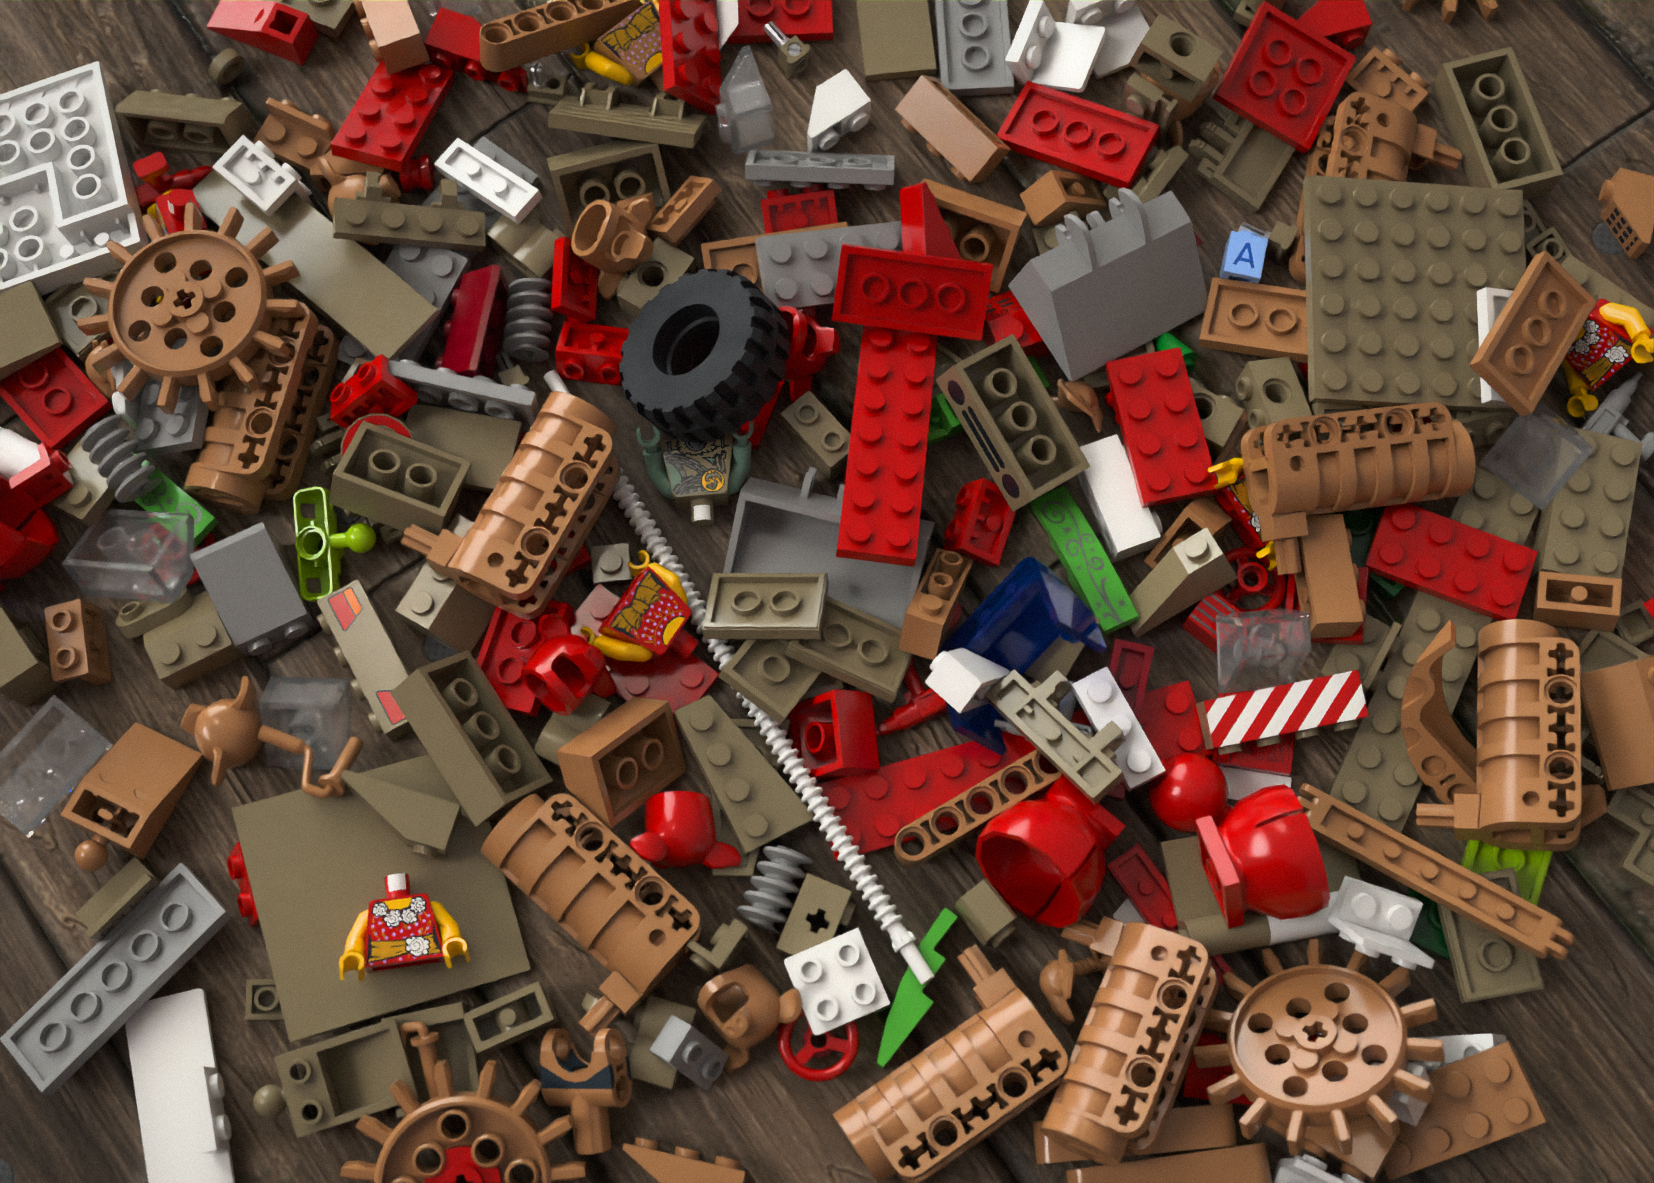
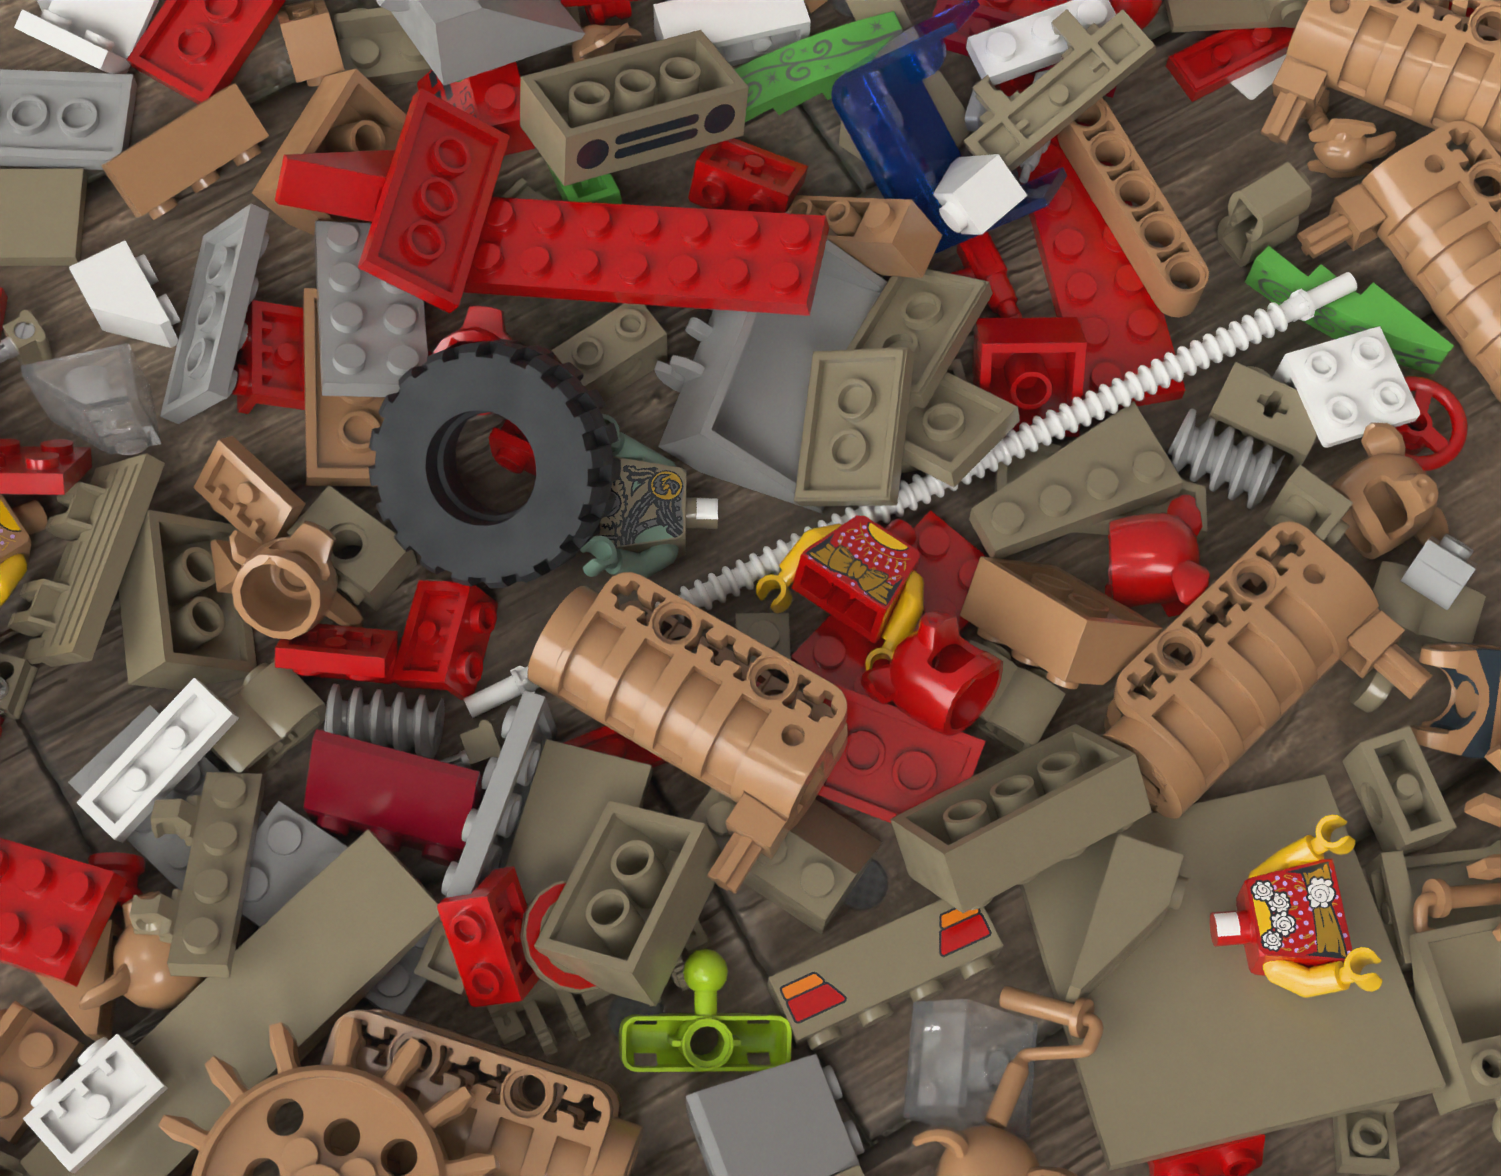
camera: 90 degrees left, 5 degrees down
(1049, 847) = (1189, 107): red plate -> none

